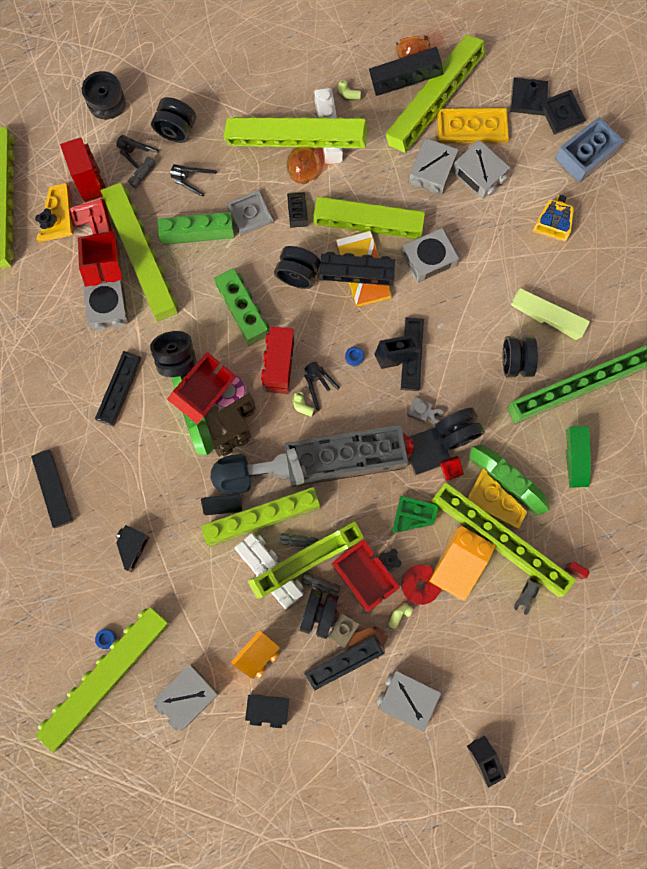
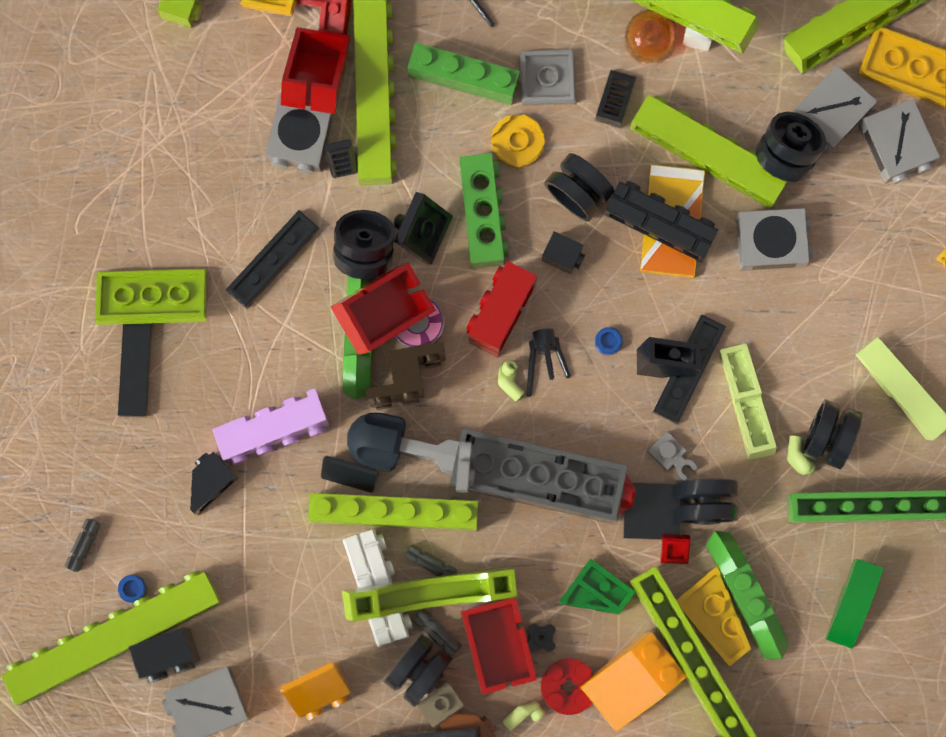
camera: 25 degrees right, 5 degrees up
(46, 442) = (151, 296): none -> lime tile
(60, 623) = (82, 545): none -> dark grey axle
(137, 307) = (341, 158): none -> black slope
(143, 674) = (164, 654): none -> black brick
(159, 494) = (271, 428): none -> lavender wedge
(207, 330) = (422, 228): none -> black tile
(247, 257) = (517, 141): none -> yellow tile
(303, 312) = (563, 253): none -> black brick
(418, 194) = (790, 146): none -> black wheel
(457, 360) = (748, 402): none -> yellowish green slope
(503, 382) = (795, 456): none -> yellowish green arm

